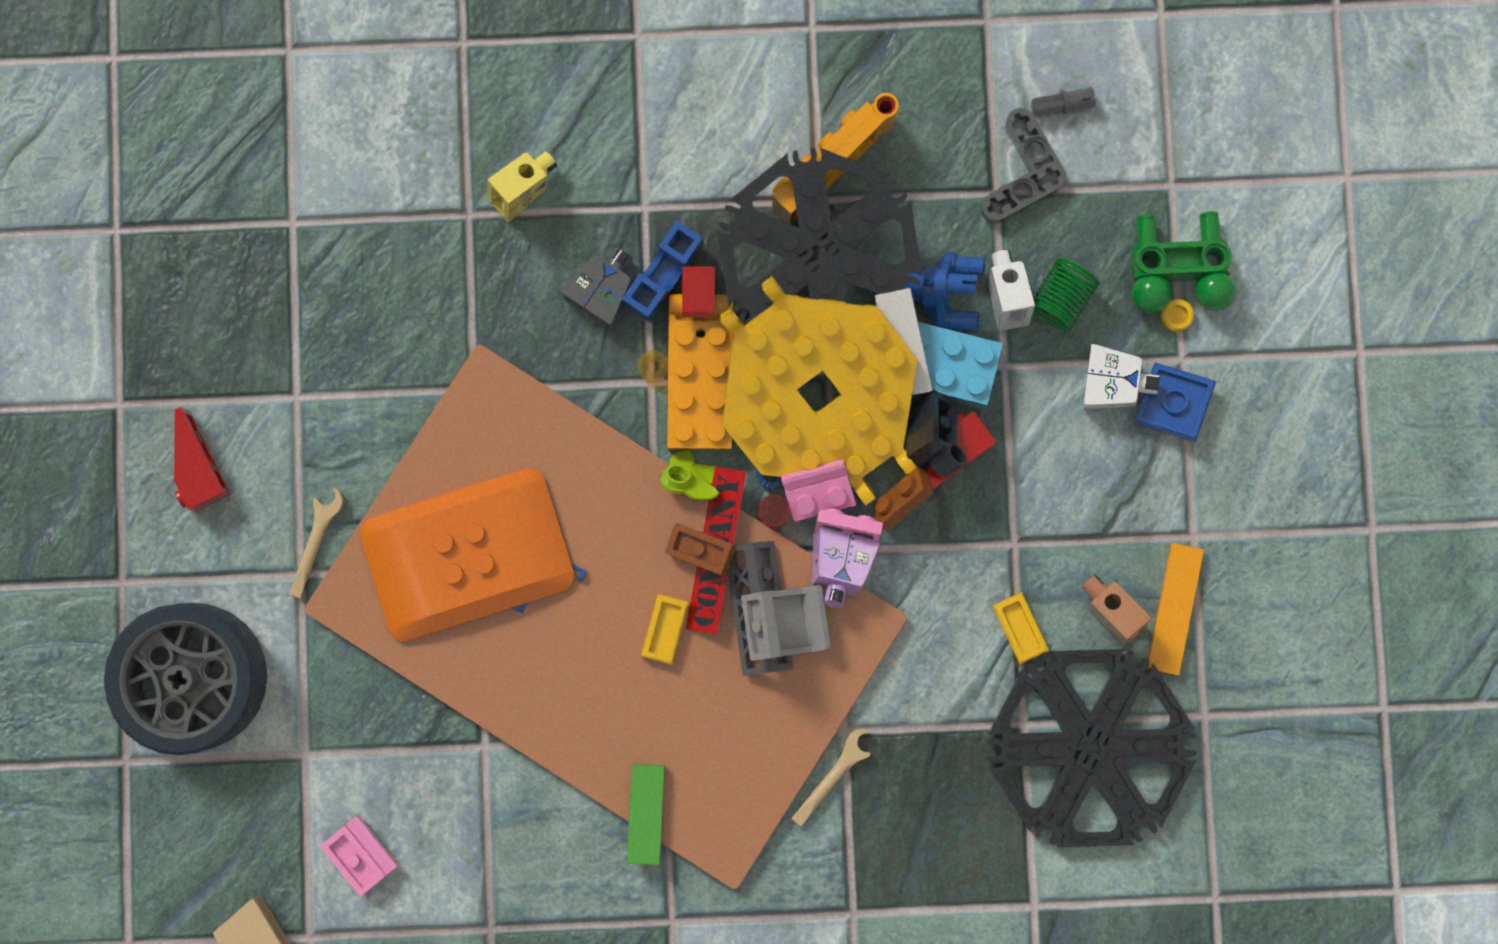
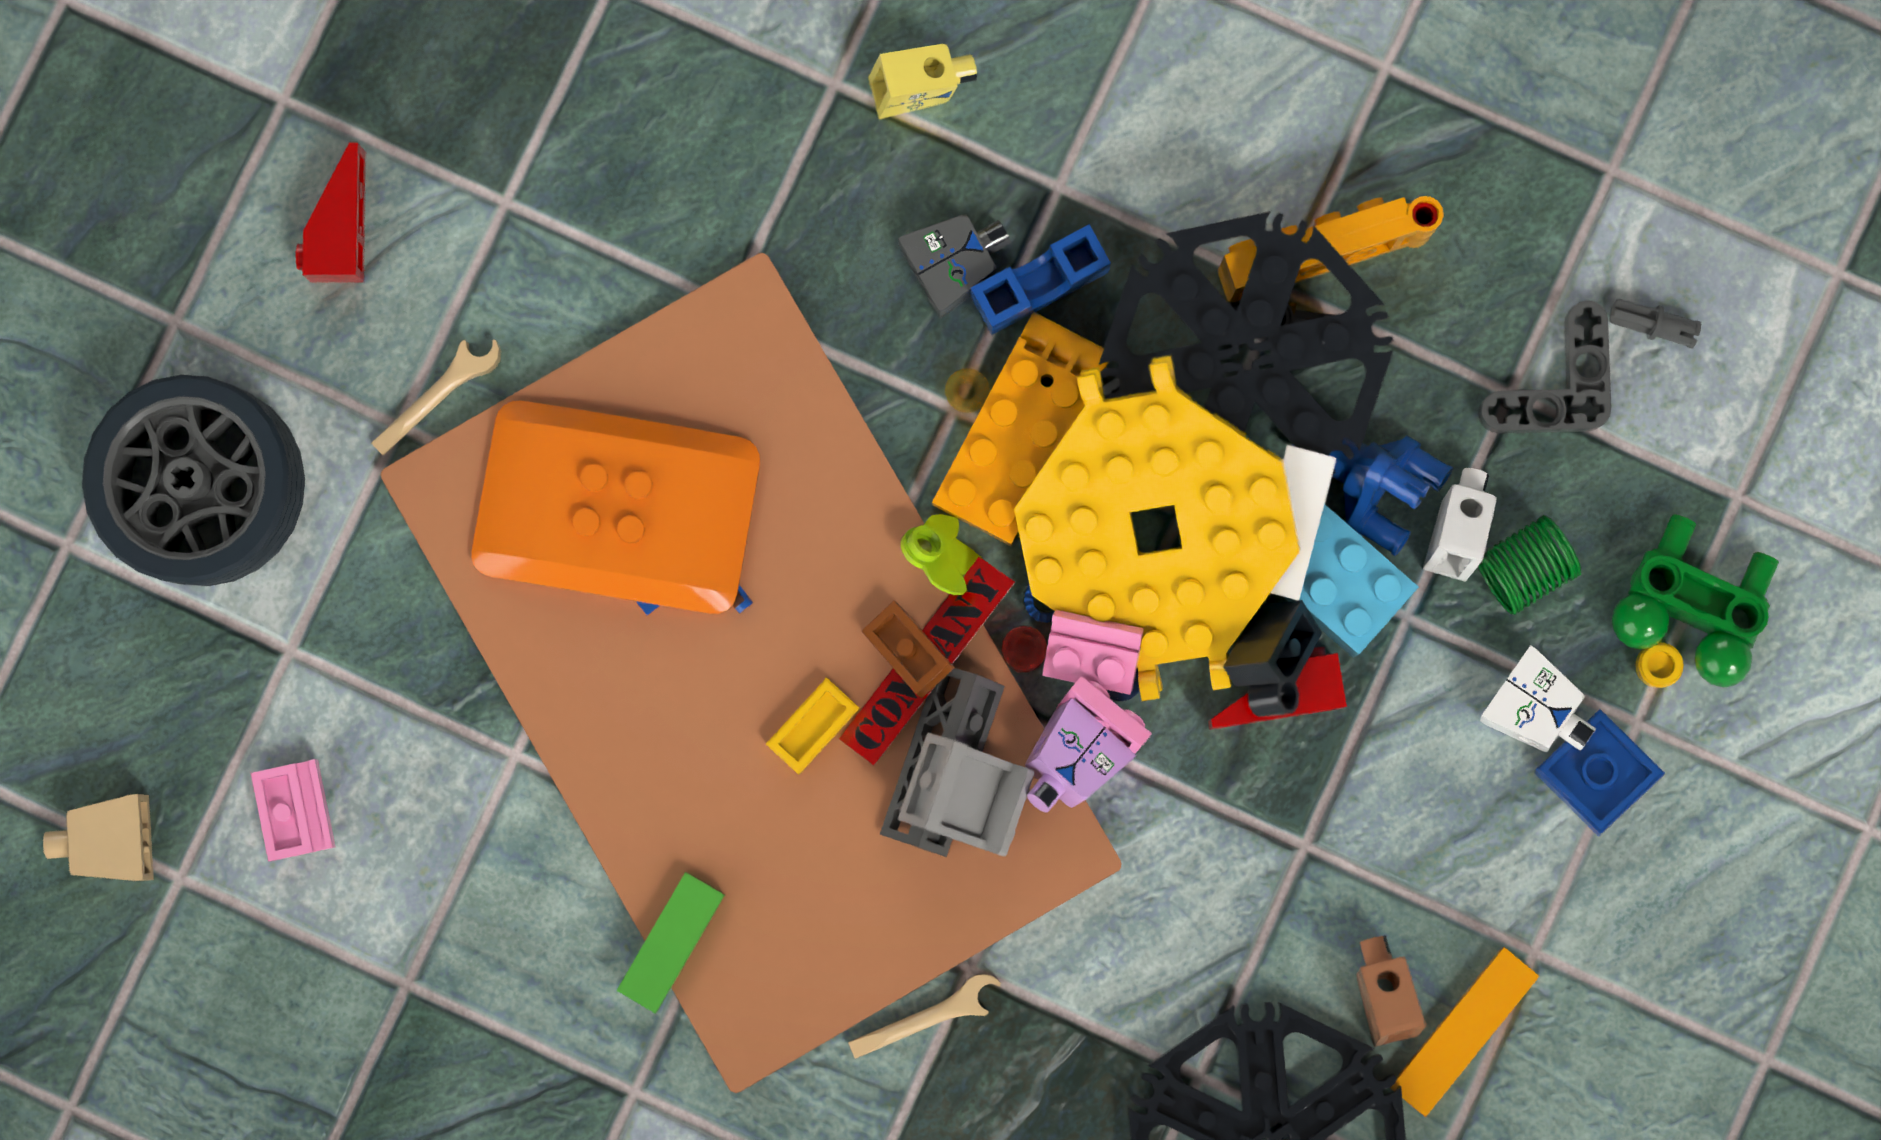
camera: 30 degrees right, 0 degrees up
(698, 291) = (1071, 327): red slope -> none
(902, 498) = (1192, 716): dark orange plate -> none
(1020, 628) = (1257, 954): yellow tile -> none

